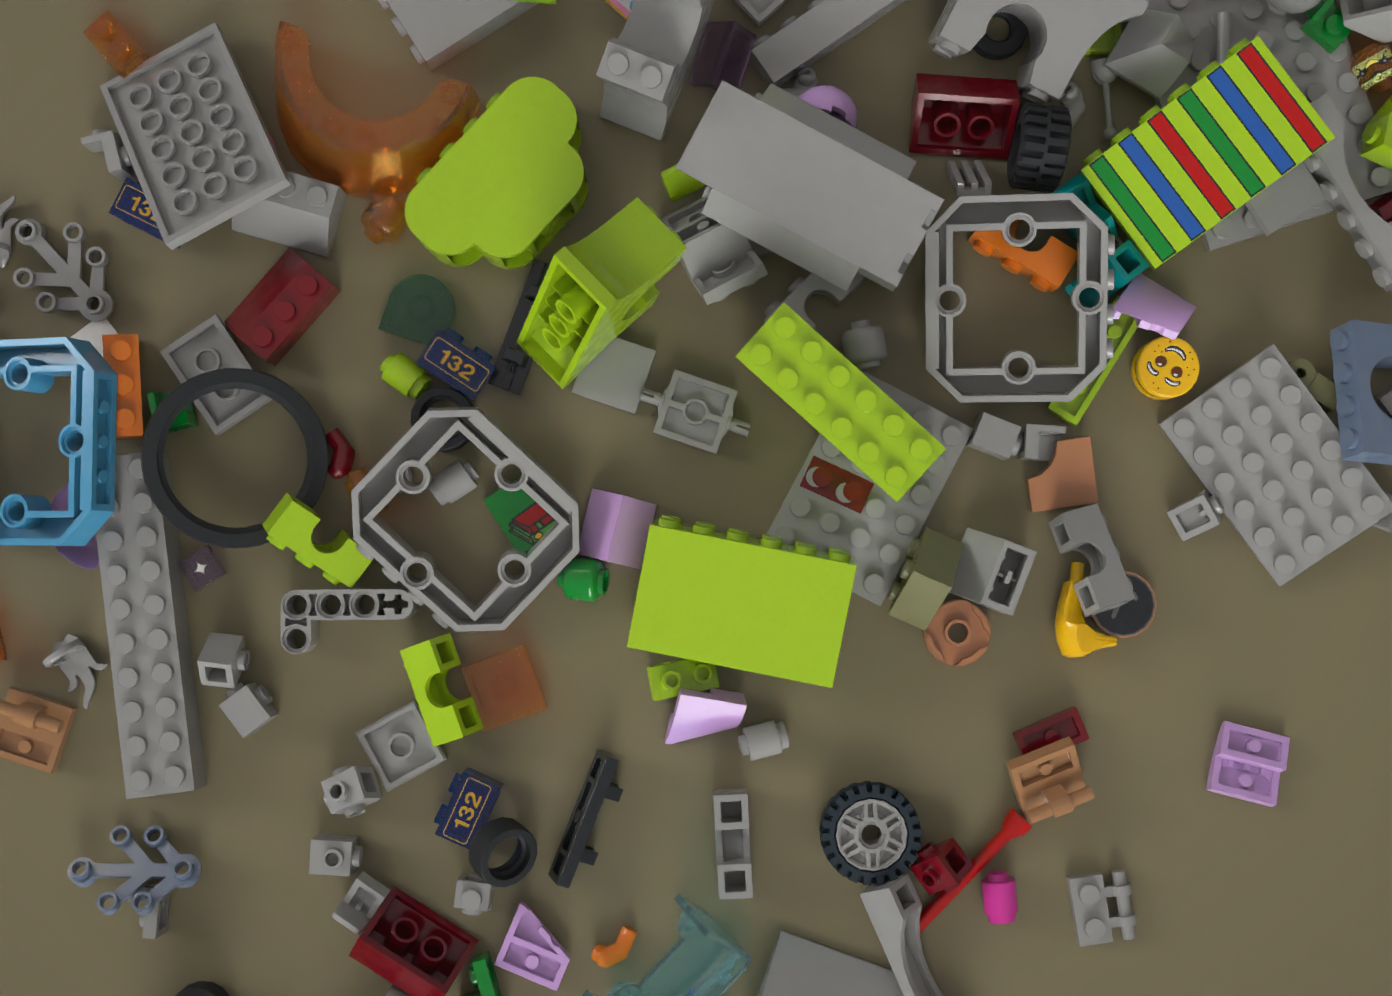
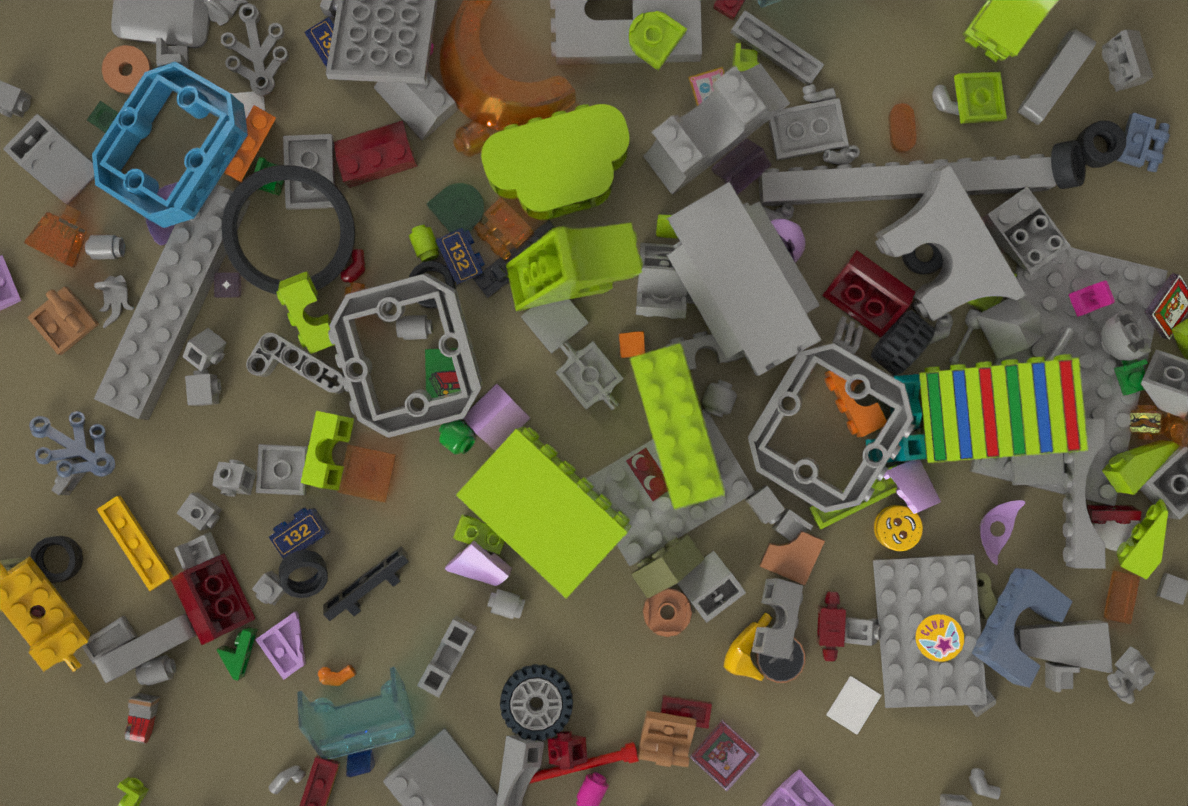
camera: 30 degrees right, 0 degrees up
(28, 612) = (105, 247): none -> light grey brick
(280, 939) = (134, 543): none -> yellow plate
(489, 291) = (508, 223): none -> clear orange plate
(722, 345) = (632, 344): none -> orange slope
(1127, 758) = (724, 755): none -> tile
(1158, 530) = (831, 626): none -> dark red piece
(1240, 607) = (853, 705): none -> white sticker
(1280, 276) = (1006, 514): none -> lavender piece
(1293, 465) = (939, 637): none -> sticker

